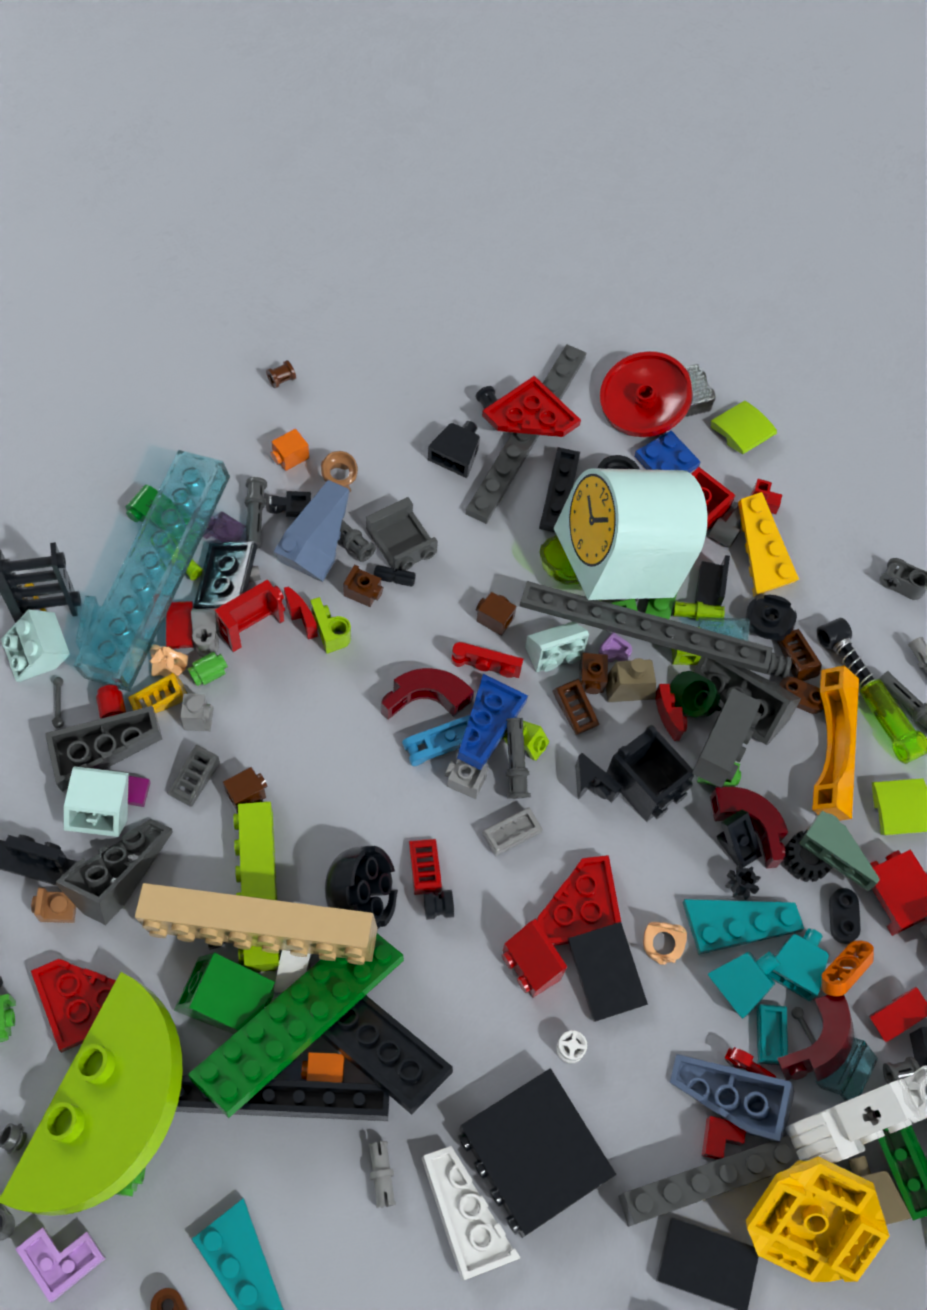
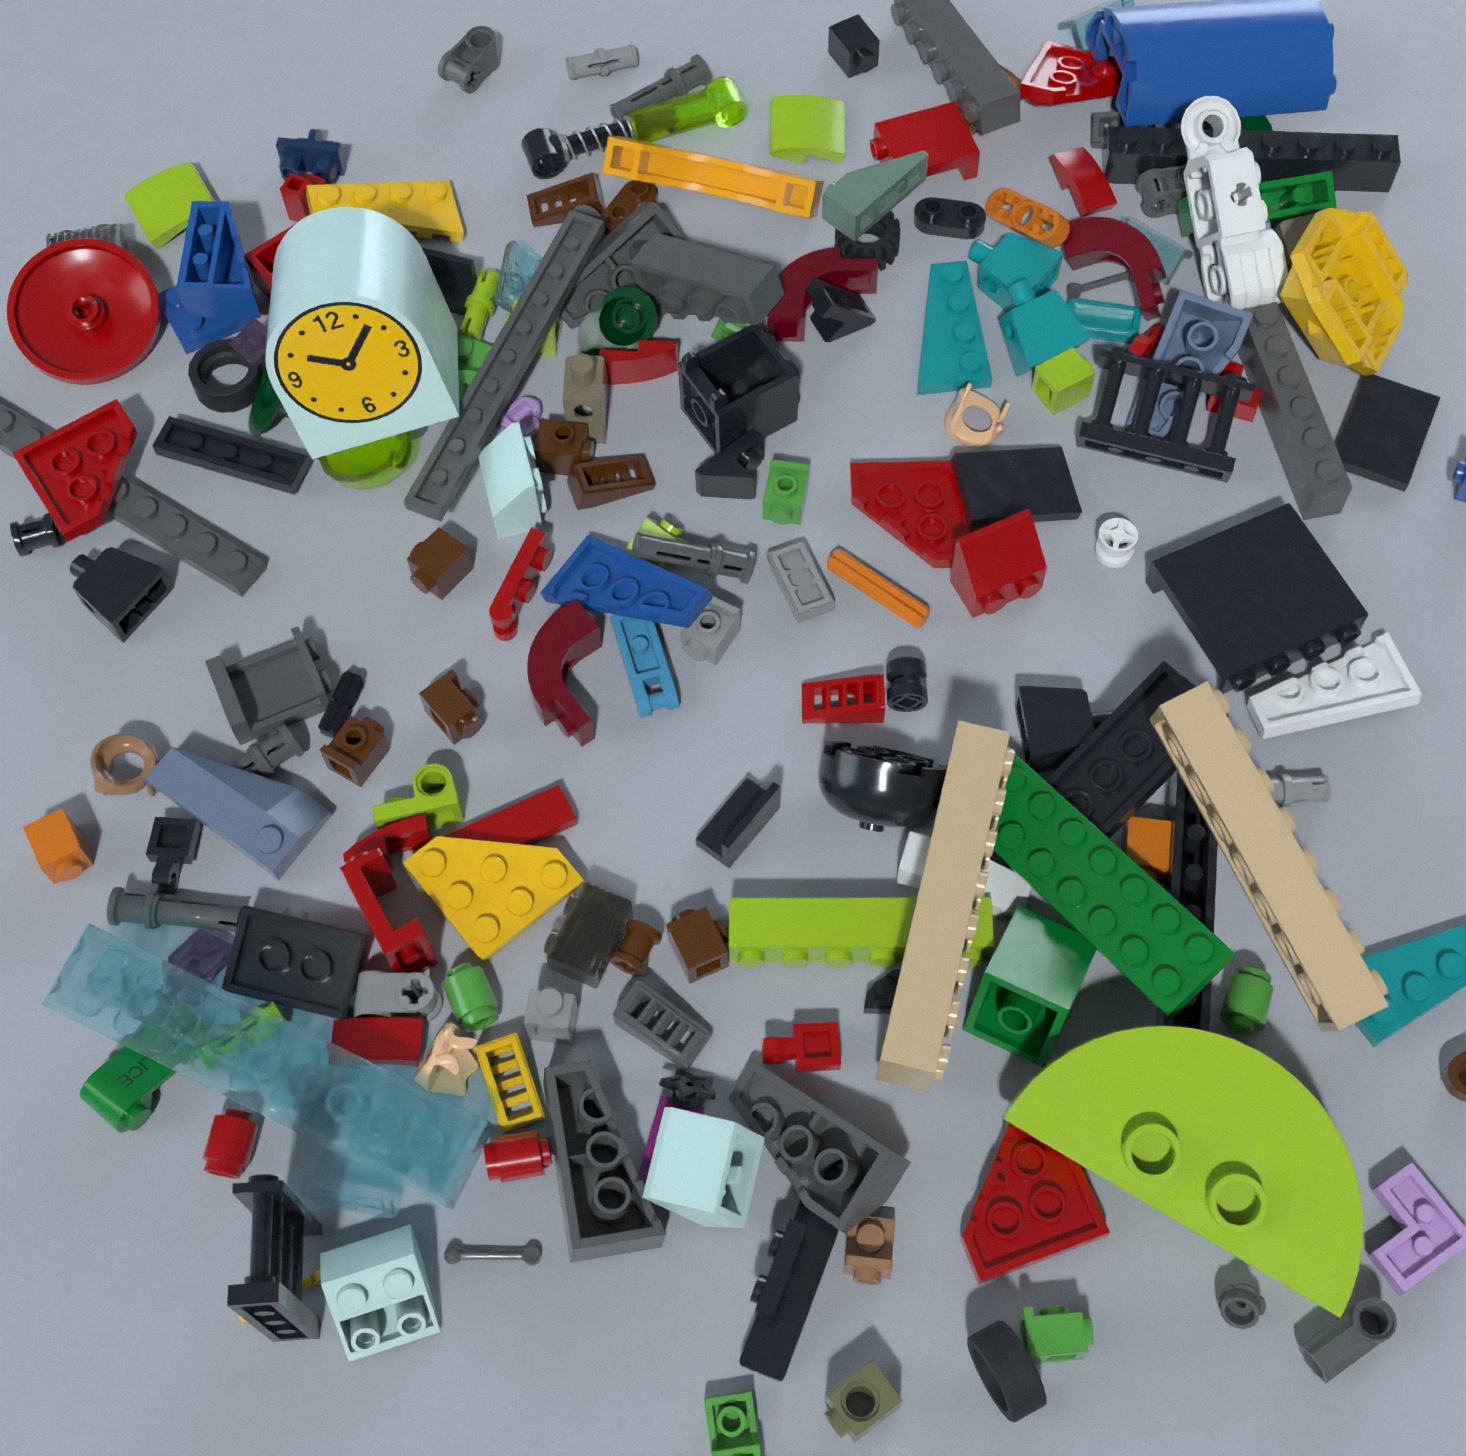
camera: 75 degrees left, 0 degrees up
(112, 560) = (230, 1143): none -> red brick
(147, 796) = (688, 1089): none -> black plate
(180, 862) = (812, 1047): none -> red plate
(218, 1143) = (1247, 1001): none -> bright green brick
(241, 754) = (635, 948): none -> reddish brown bush
(248, 727) = (588, 935): none -> clear smoke brick
(277, 671) = (492, 887): none -> yellow plate
(297, 1138) = (1268, 859): none -> tan brick
(318, 678) = (524, 821): none -> red tile
(332, 808) = (739, 821): none -> black panel
(394, 633) = (451, 708): none -> reddish brown brick
(415, 1005) = (1053, 723): none -> black torso
(514, 883) = (878, 588): none -> orange axle
(581, 824) = (786, 492): none -> bright green brick
(656, 1089) = (1174, 452): none -> black fence
(691, 449) = (213, 265): none -> blue wedge
(707, 1004) = (1063, 380): none -> lime brick
(740, 889) = (899, 315): black gear -> none
(775, 629) = (492, 207): black plate -> none
(801, 496) = (311, 155): none -> dark blue hips

